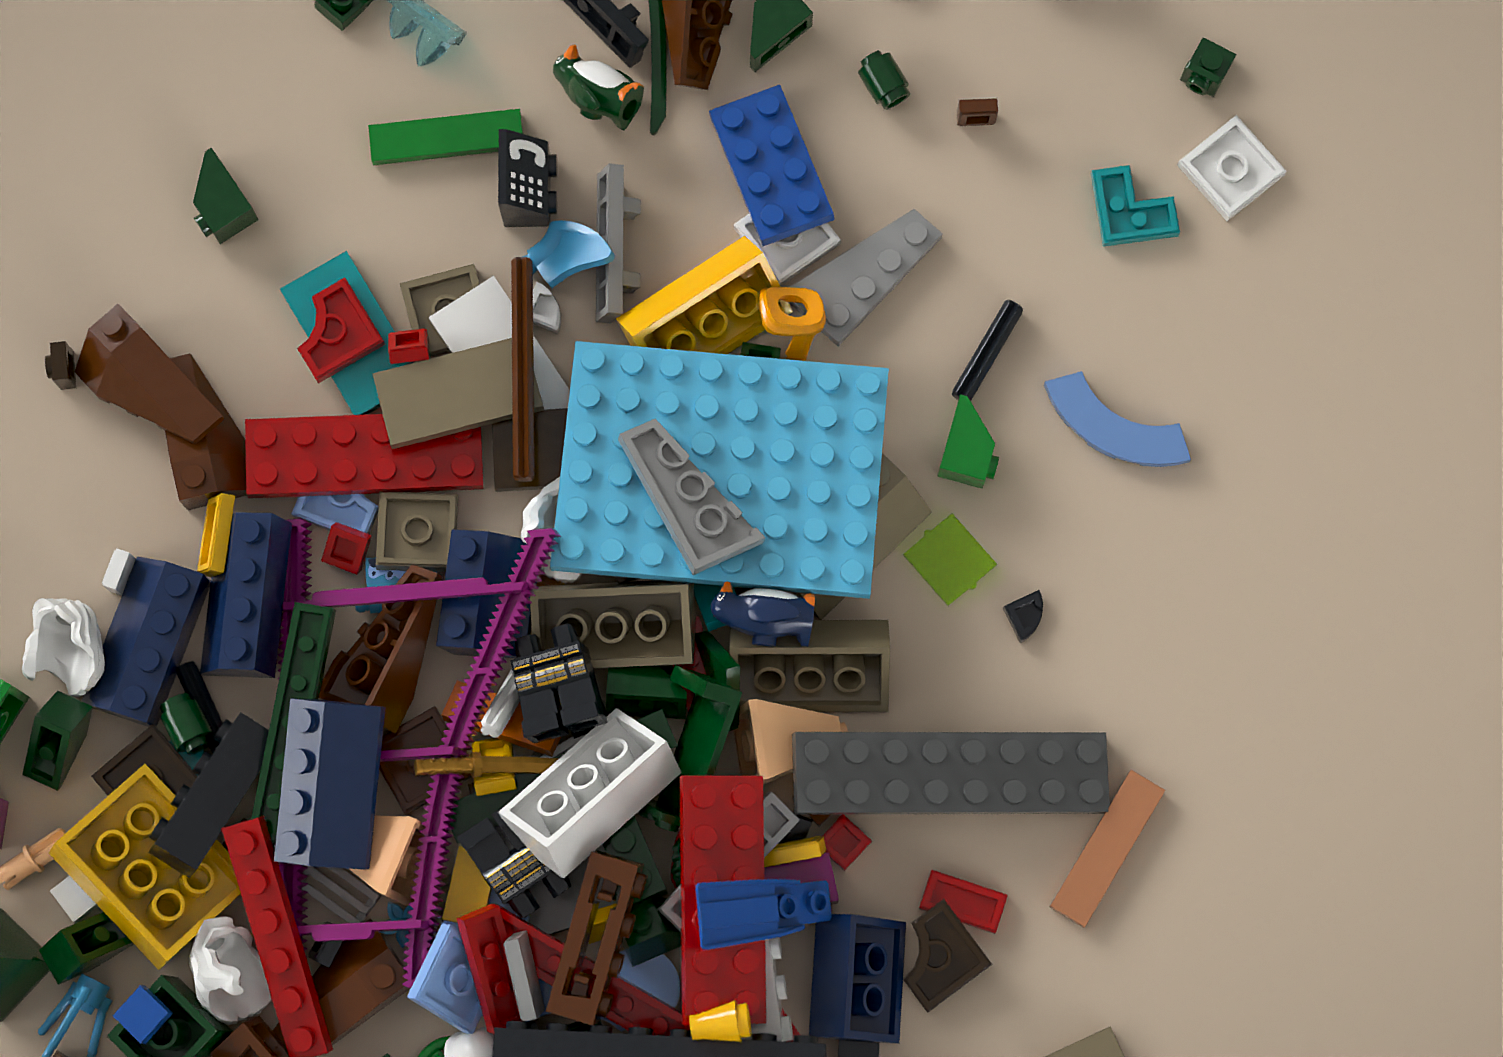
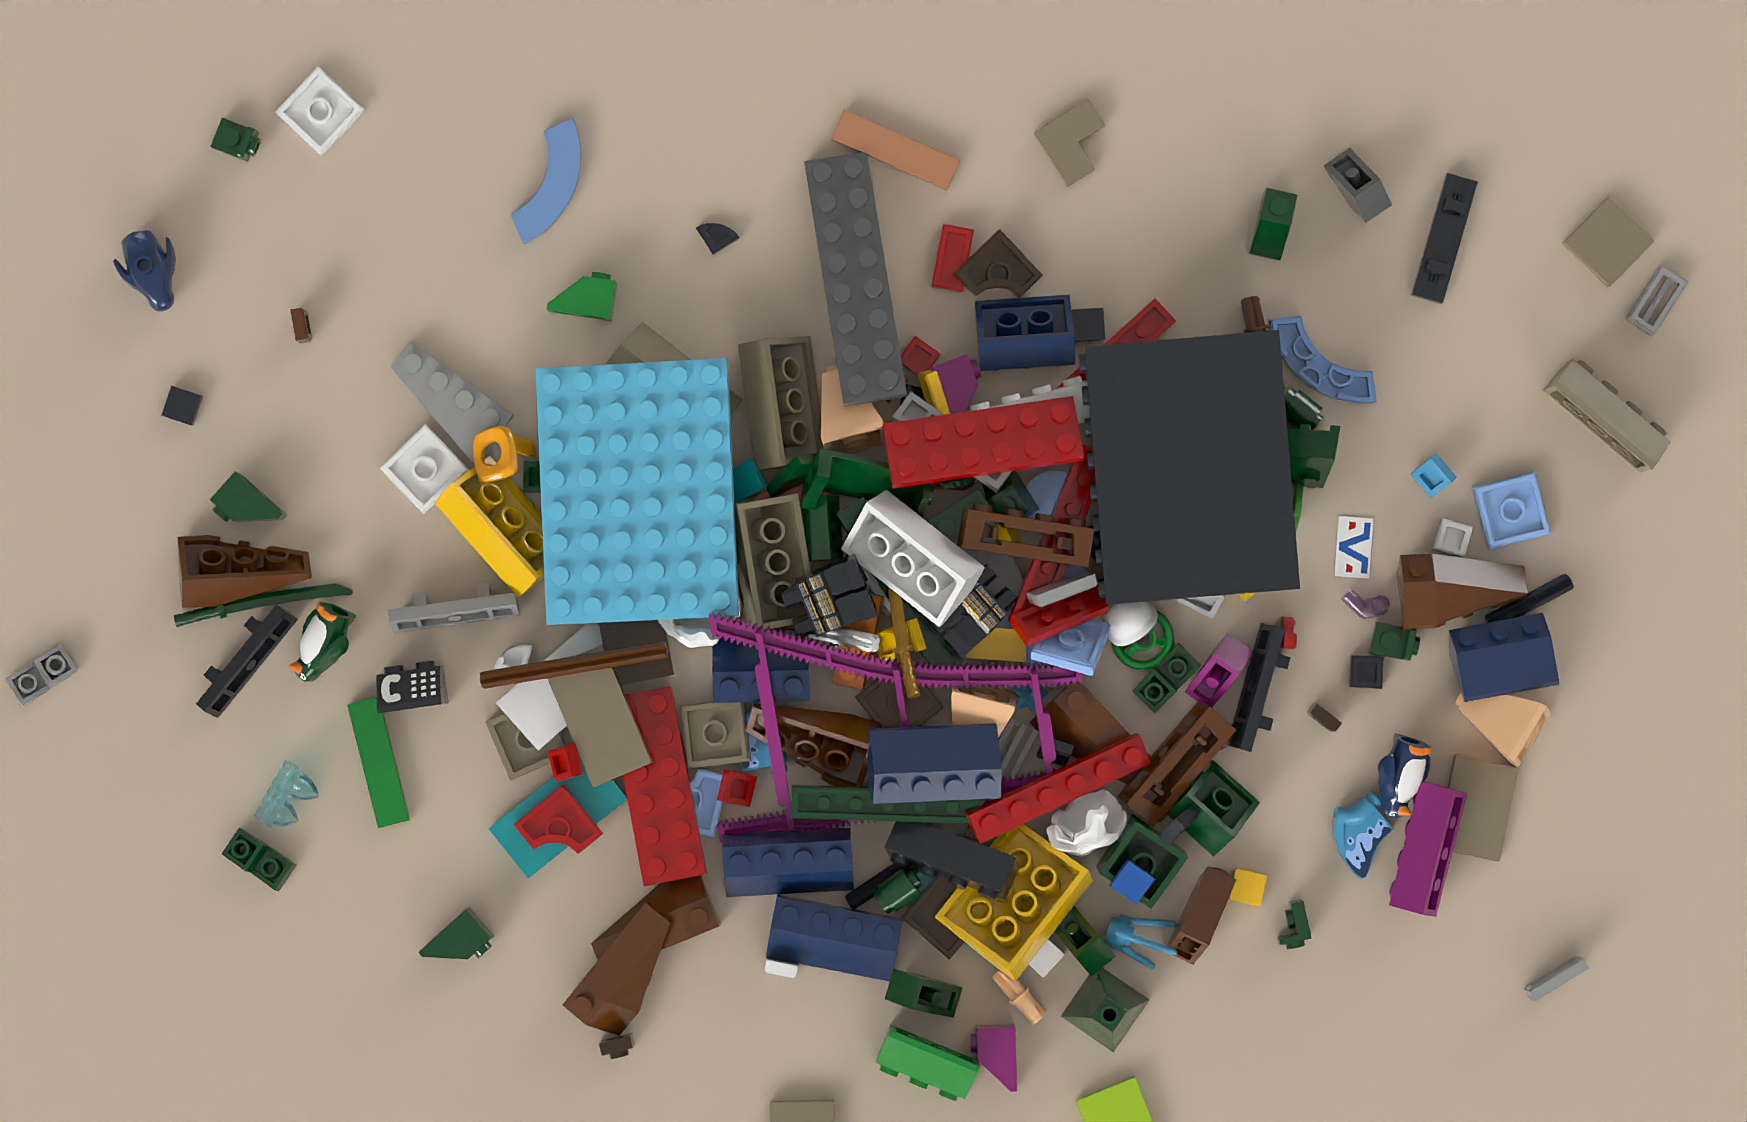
camera: 95 degrees left, 10 degrees up
(66, 644) = (846, 997): white hair -> none
(216, 535) = (742, 892): yellow tile -> none
(567, 250) = (466, 645): dark azure arm -> none
(693, 510) = (678, 507): light grey wing -> none
(722, 1023) = (1080, 427): yellow cone -> none
(758, 909) = (988, 412): blue piece -> none
(765, 614) = (751, 439): dark blue animal -> none
(771, 165) = (369, 489): blue plate -> none
(884, 79) = (282, 406): dark green brick -> none
(950, 559) = (679, 302): clear neon green piece -> none
(988, 350) = (503, 292): black axle -> none
(1125, 219) = (375, 194): teal tile -> none

